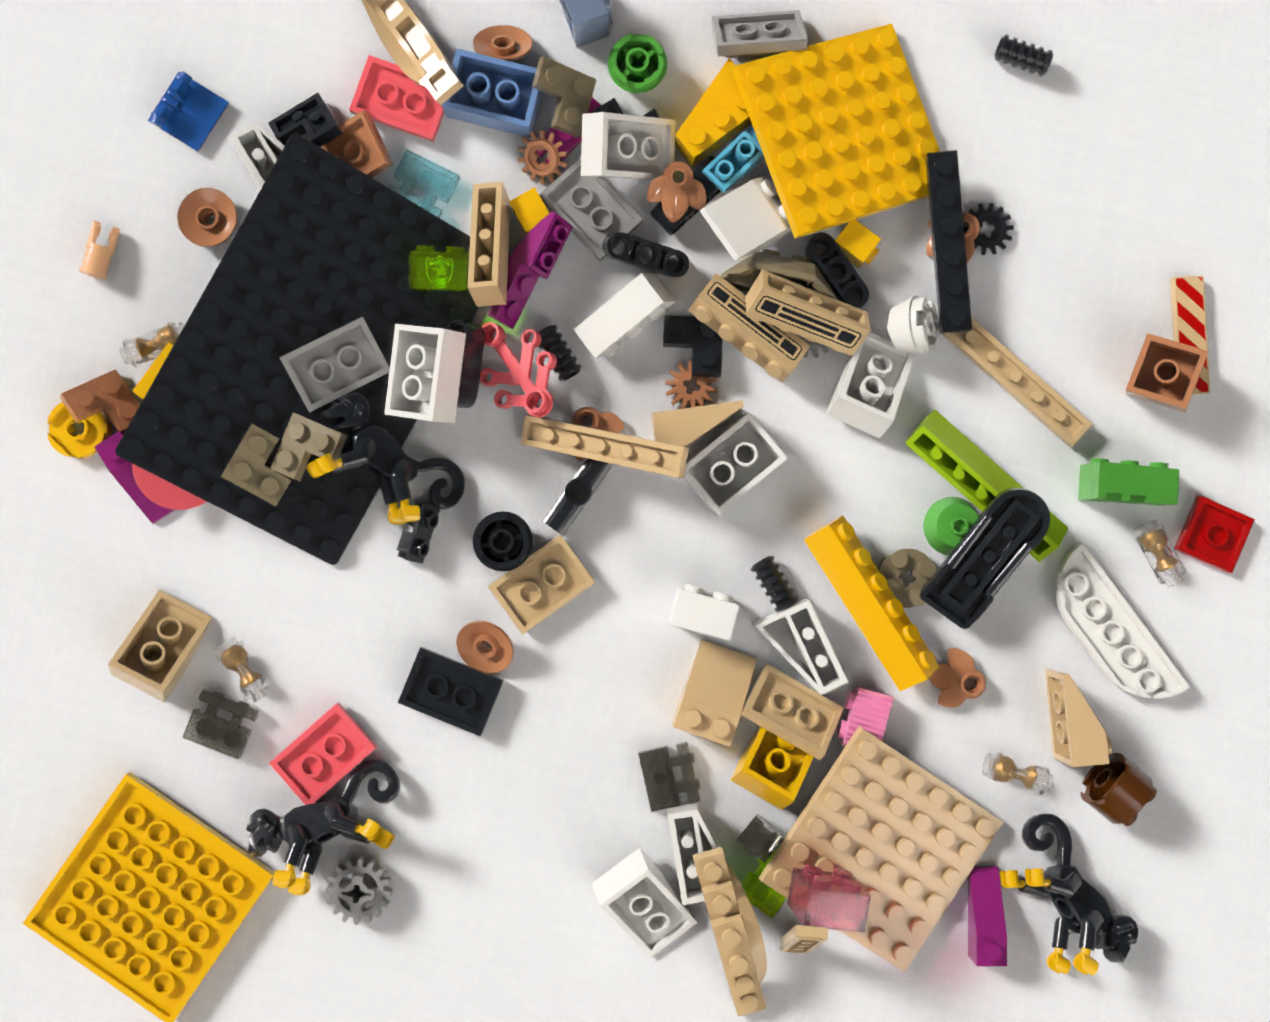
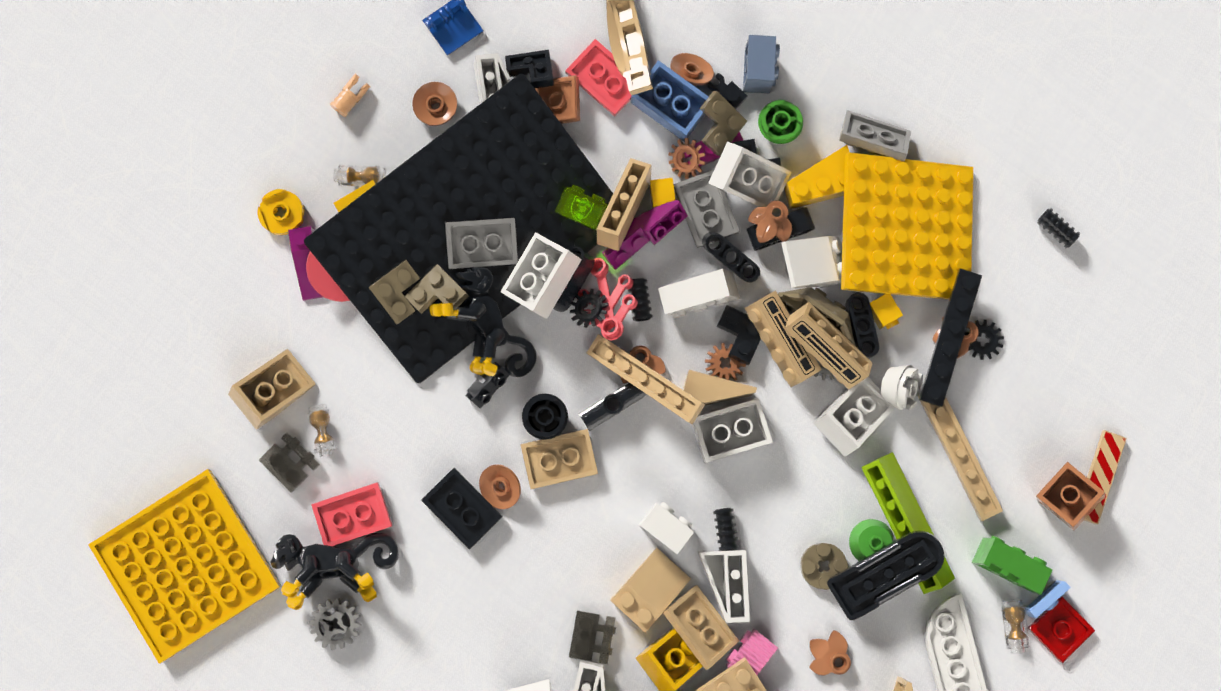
camera: 25 degrees right, 5 degrees down
(104, 394) = (308, 195): nougat plate -> none
(427, 177) = (600, 140): clear light blue plate -> none
(490, 386) = (583, 302): none -> black gear
(561, 52) = (730, 92): none -> black plate
(735, 161) = (821, 218): medium azure slope -> none
(872, 603) = (790, 573): yellow brick -> none
(1187, 506) = (1047, 599): none -> light blue plate

